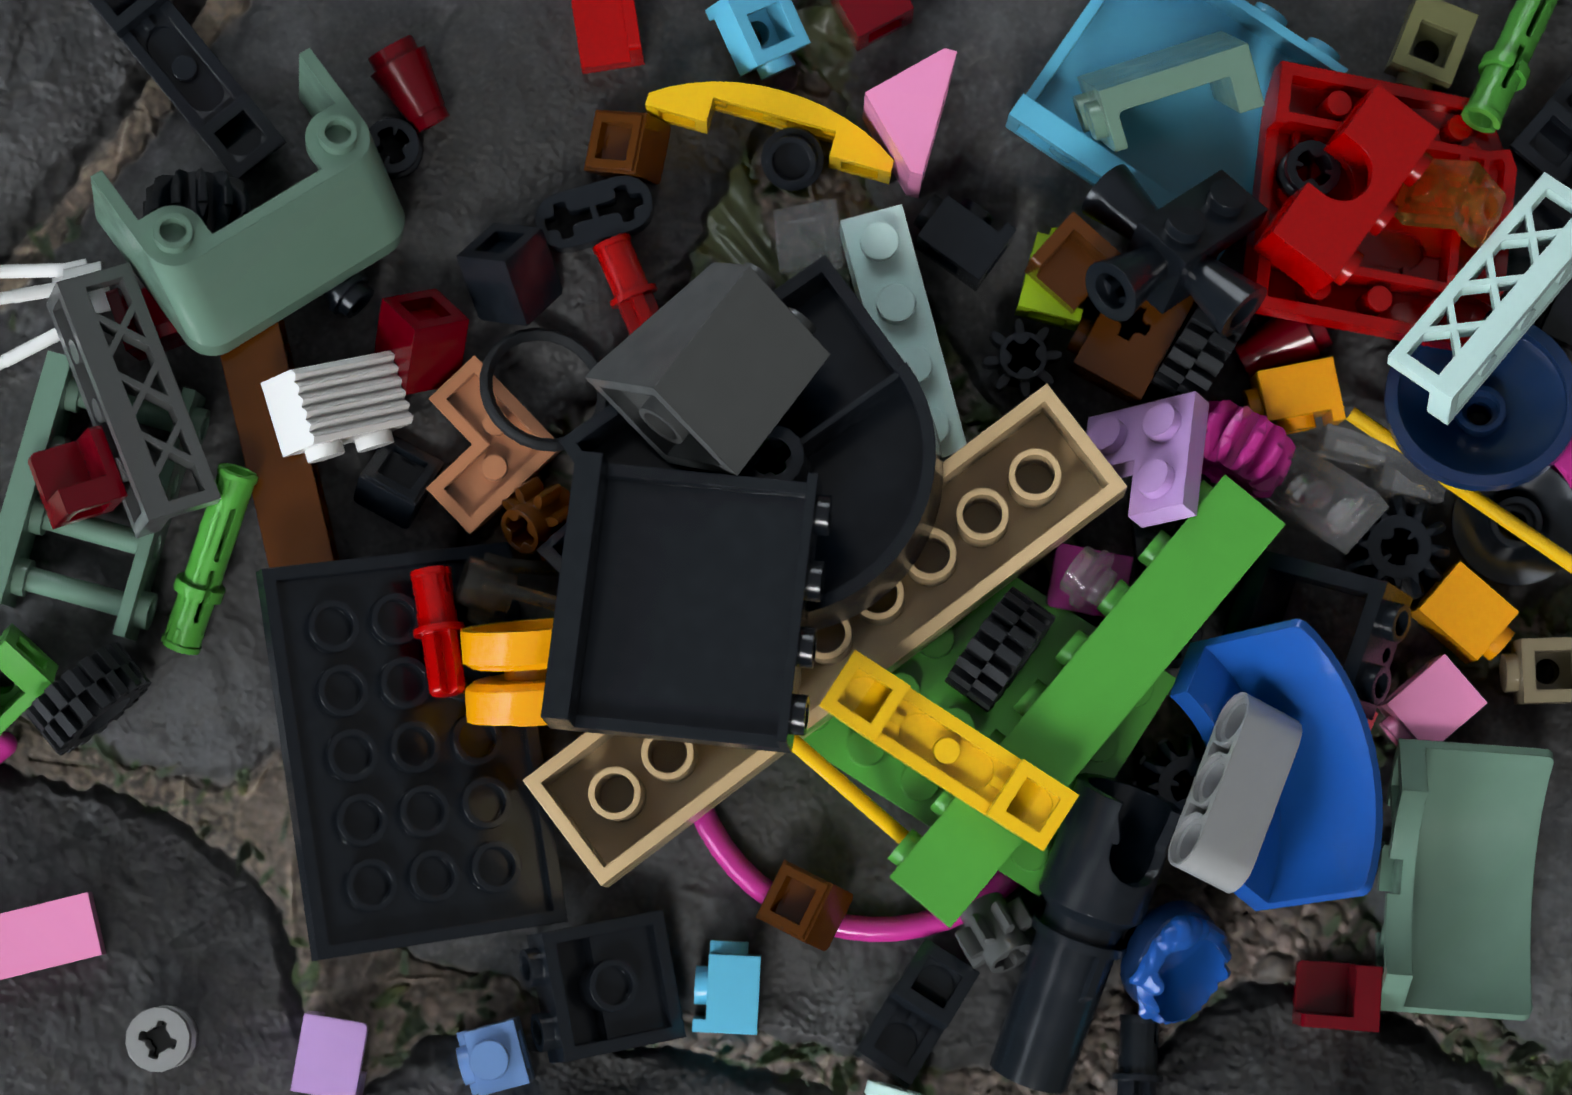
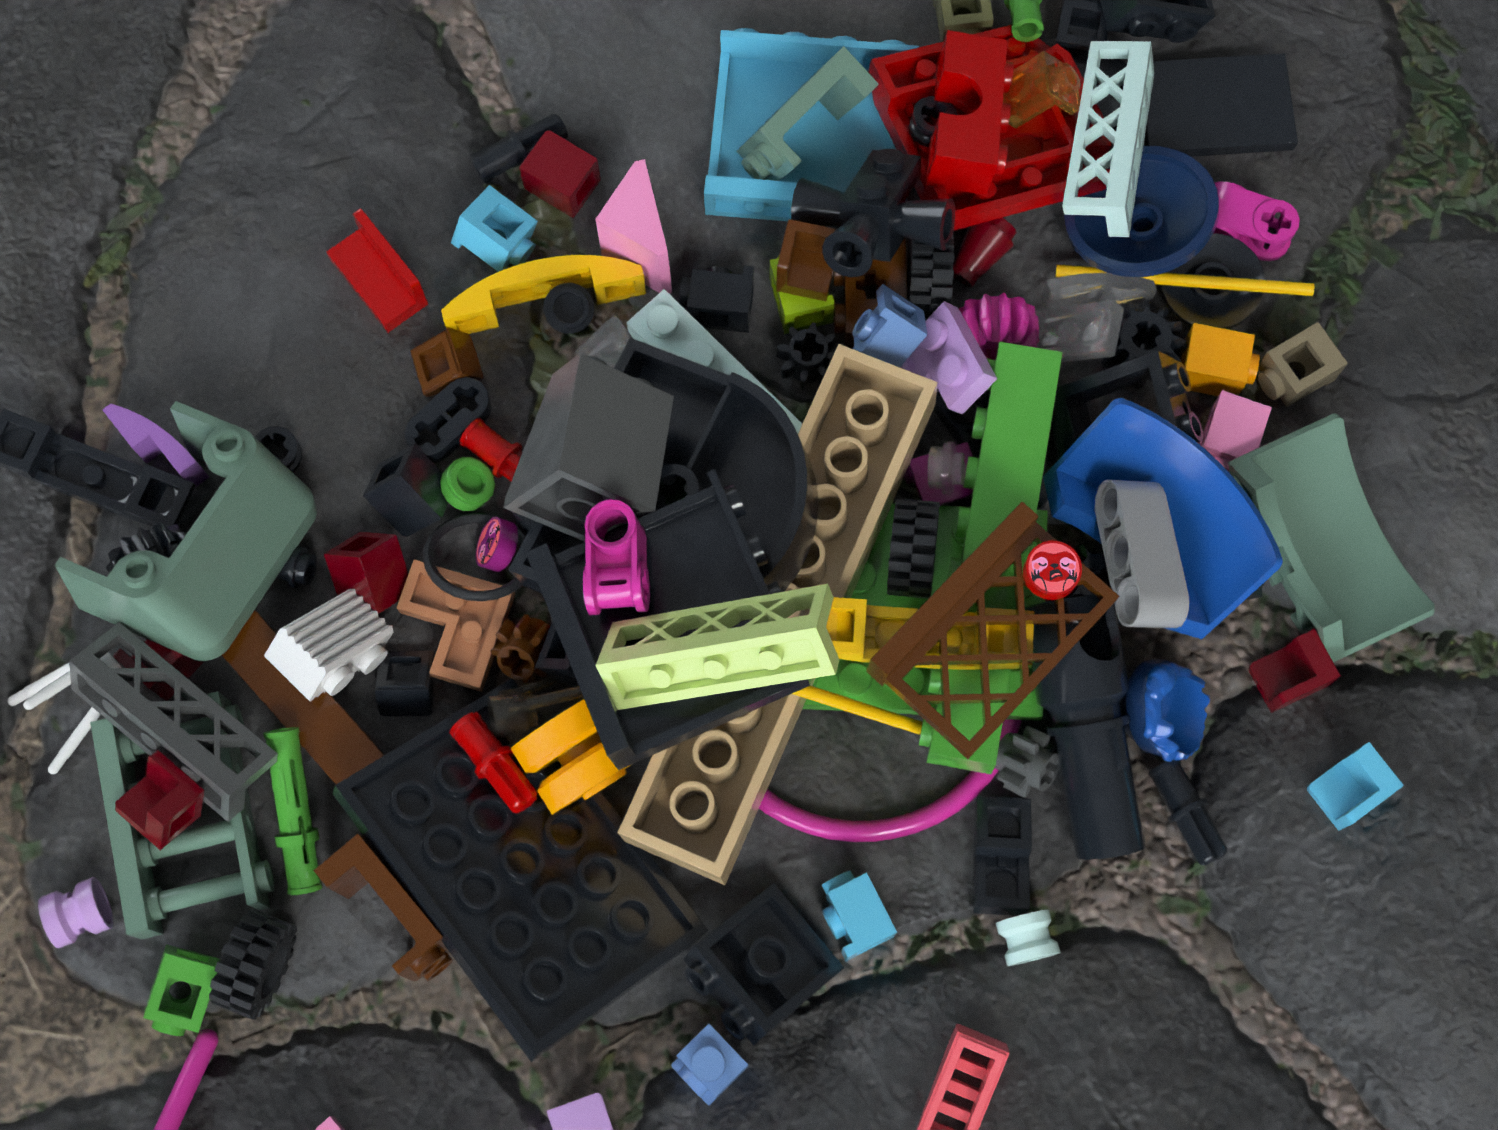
camera: 30 degrees left, 10 degrees down
(249, 658) = (358, 865): none -> reddish brown panel
(260, 61) = (151, 440): none -> medium lavender slope
(409, 82) = (264, 398): dark red cone -> none
(567, 389) = (496, 544): none -> magenta tile
(576, 299) = (467, 484): none -> bright green tile
(661, 517) = (615, 570): none -> dark pink piece
(700, 677) = (717, 656): none -> yellowish green fence
(805, 906) = (876, 820): reddish brown slope -> none
(1005, 738) = (947, 609): none -> reddish brown fence
(1115, 392) = (891, 329): none -> medium blue brick
(1118, 767) = (1052, 570): none -> tile
(1297, 395) = (1015, 271): light orange brick -> none

